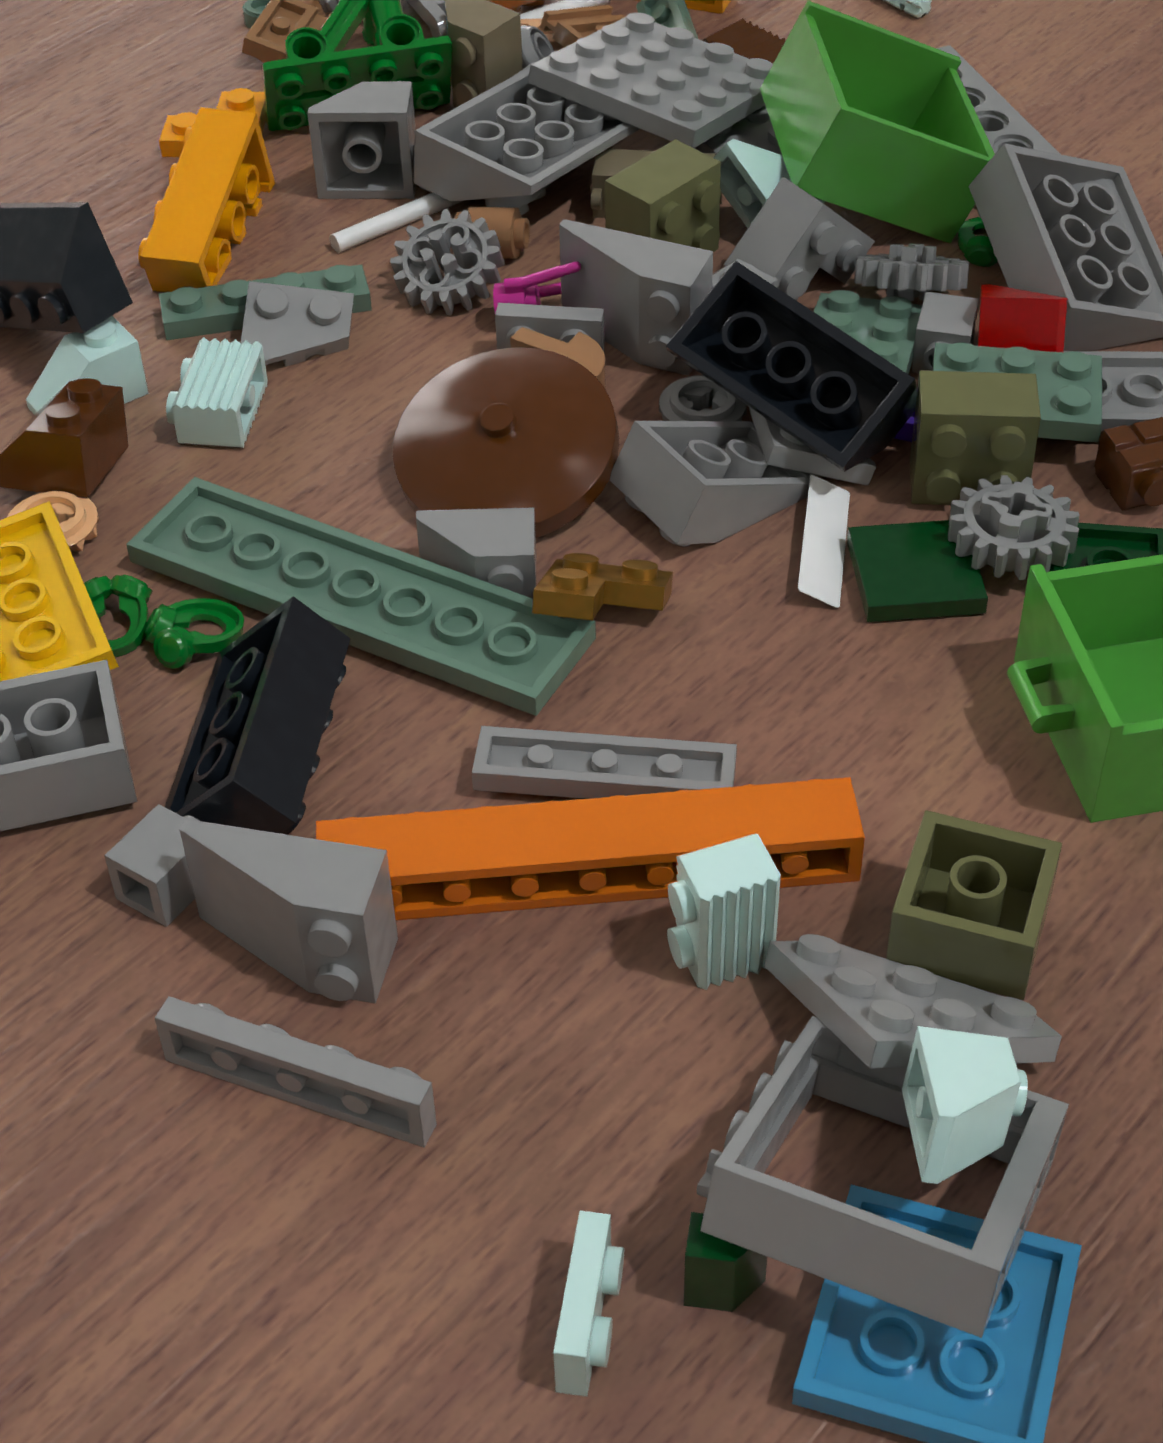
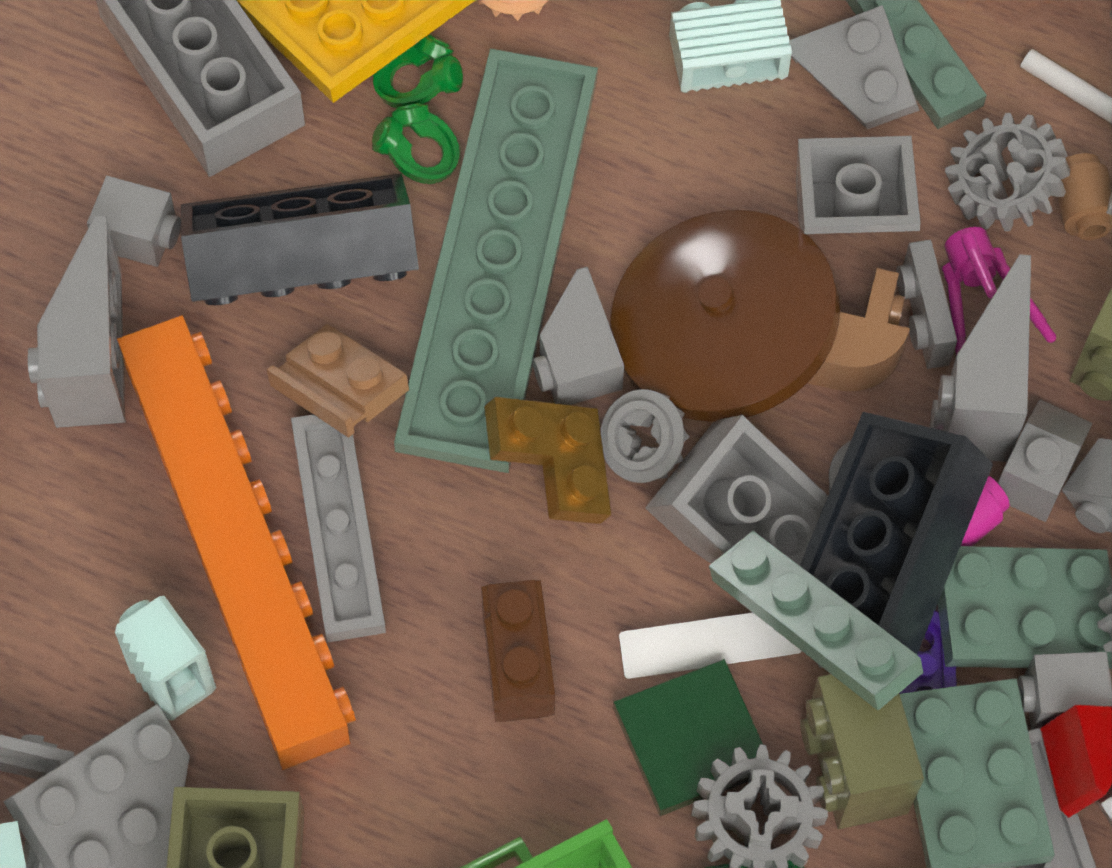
camera: 70 degrees right, 20 degrees up
(424, 331) = (856, 185): none -> light grey slope
(445, 726) = (338, 380): none -> medium nougat plate
(609, 499) = (622, 443): none -> light grey gear
(798, 652) = (518, 650): none -> reddish brown brick
(859, 411) = (816, 620): none -> sand green plate

